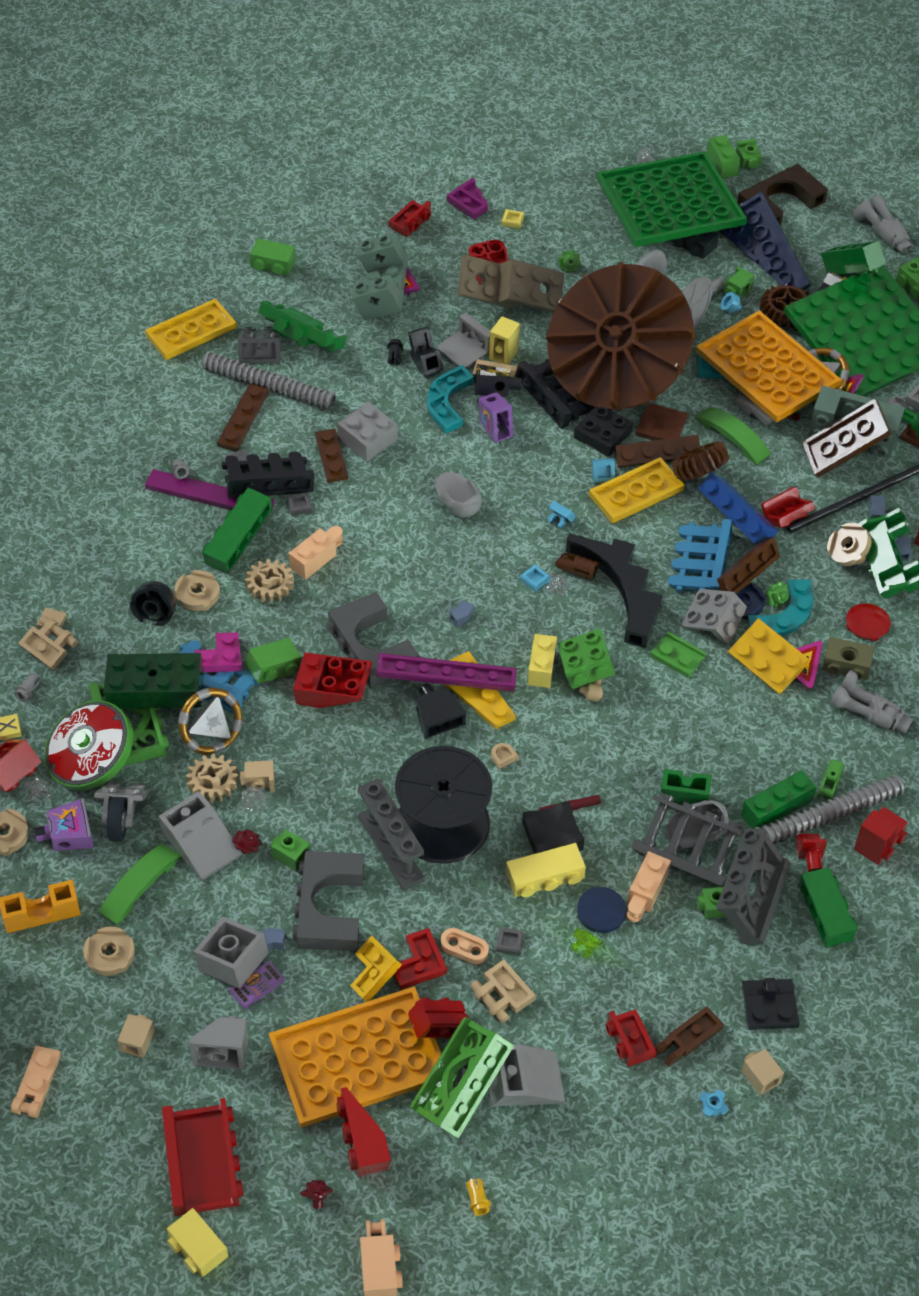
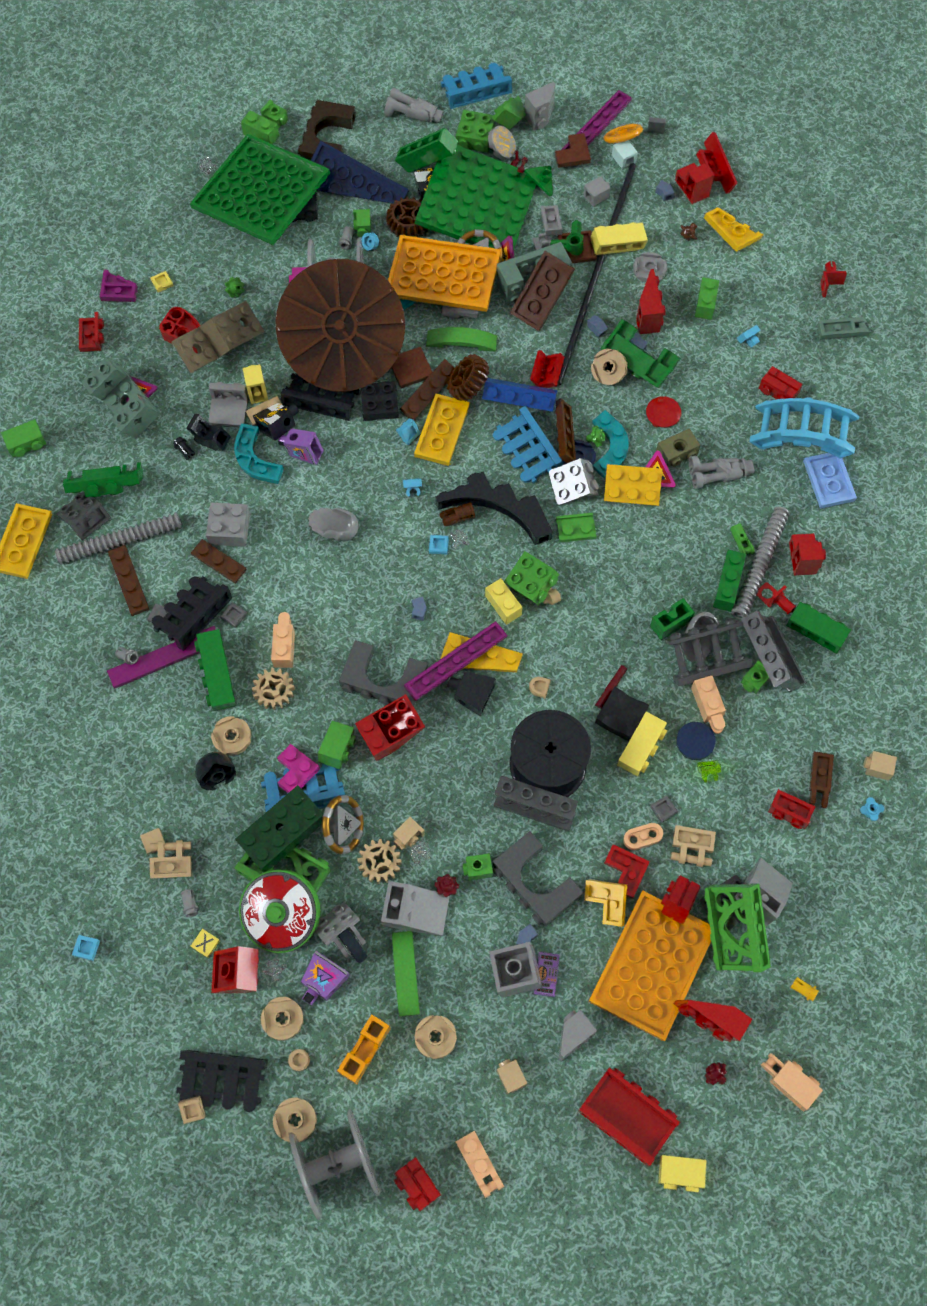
camera: 40 degrees left, 15 degrees up
(770, 1004) = (842, 717): black hinge -> none

